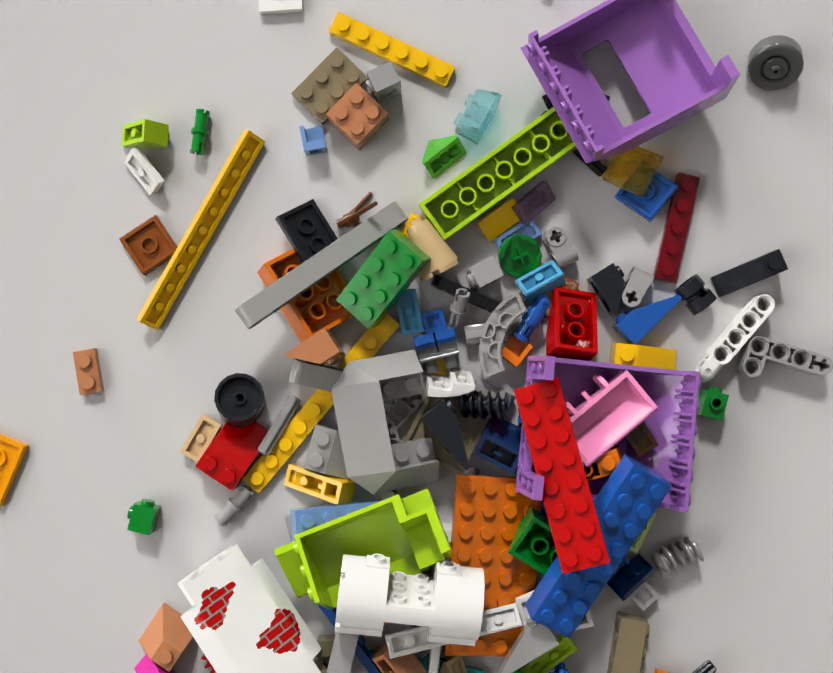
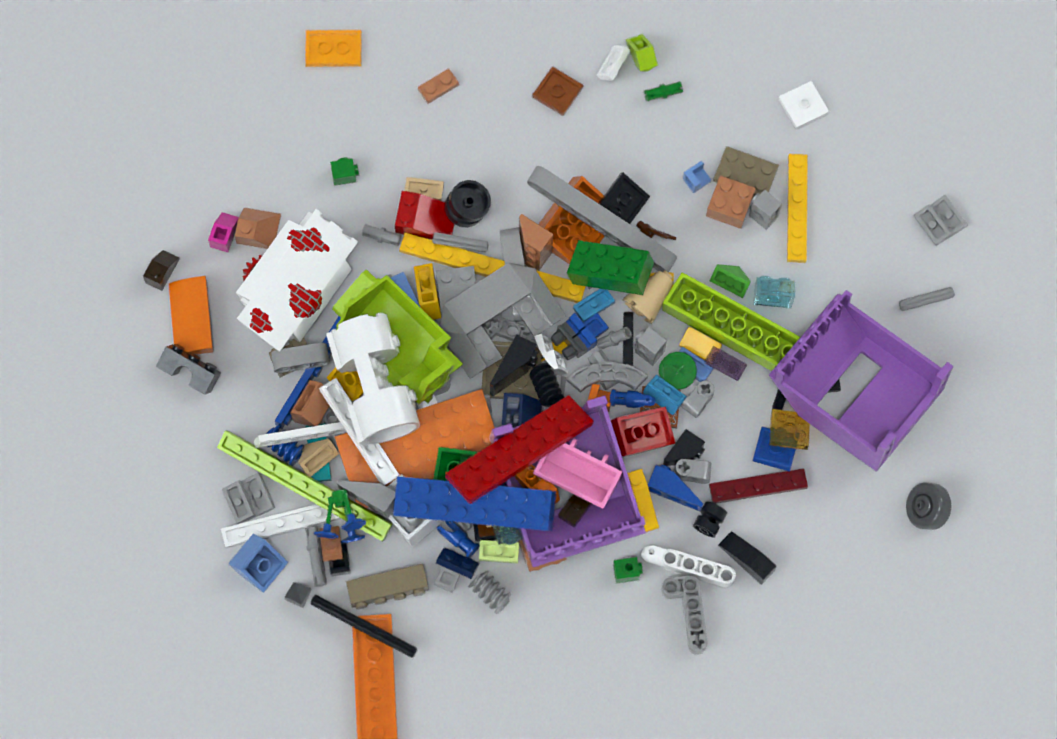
camera: 65 degrees right, 15 degrees down
(201, 230) = (587, 122): yellow plate -> none

